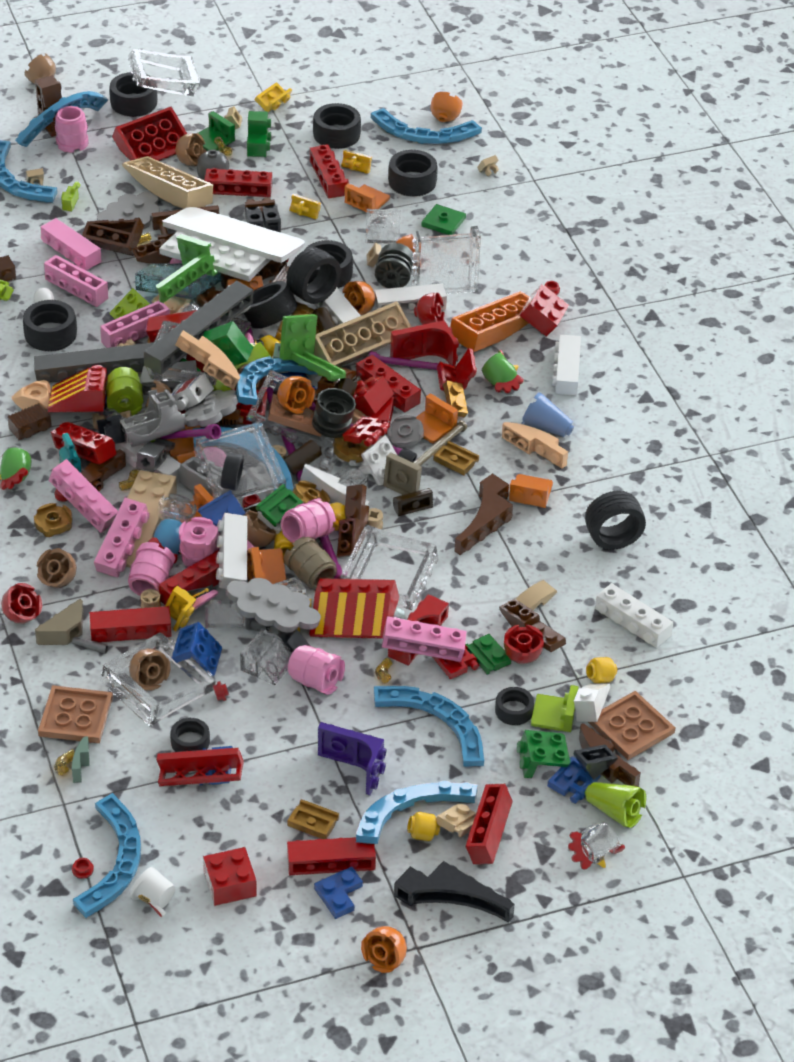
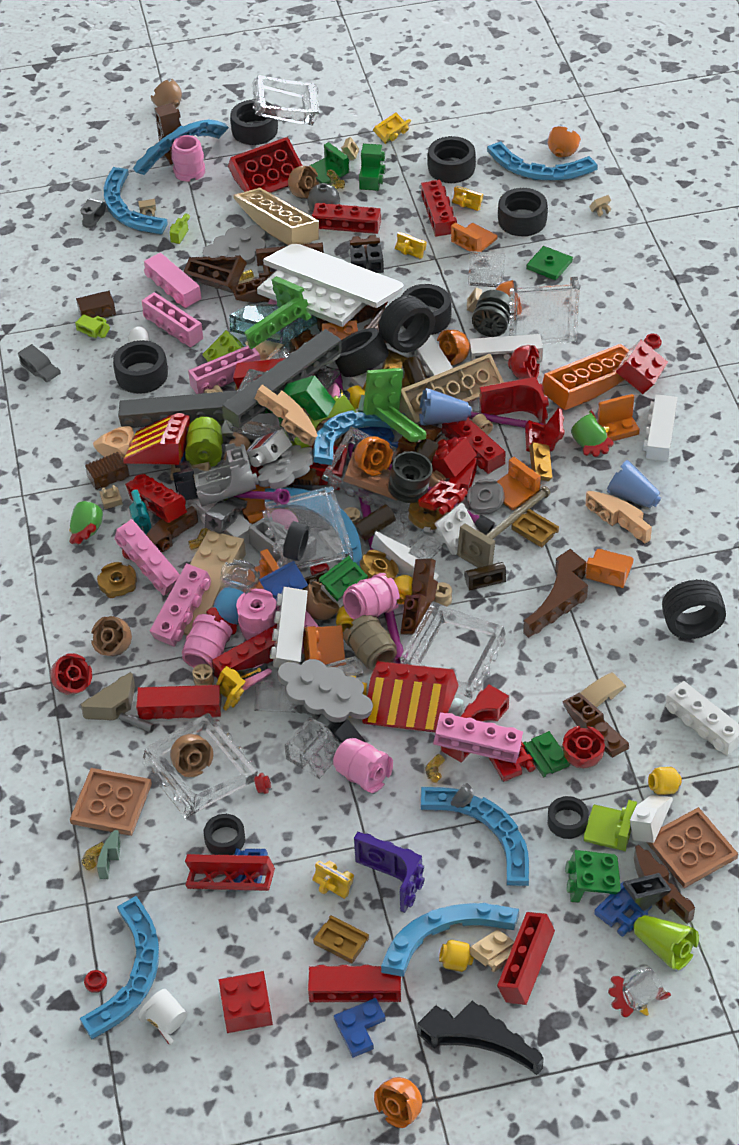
camera: 10 degrees right, 5 degrees up
(35, 446) = (110, 497): none -> tan tile
(200, 645) = (245, 732): blue bracket -> none
(298, 769) = (330, 879): none -> yellow hips
(356, 351) = (442, 408): none -> medium blue cone
(396, 366) = (482, 422): none -> tan wheel
(414, 692) = (463, 796): none -> dark grey piece
(525, 354) = (618, 415): none -> orange bracket

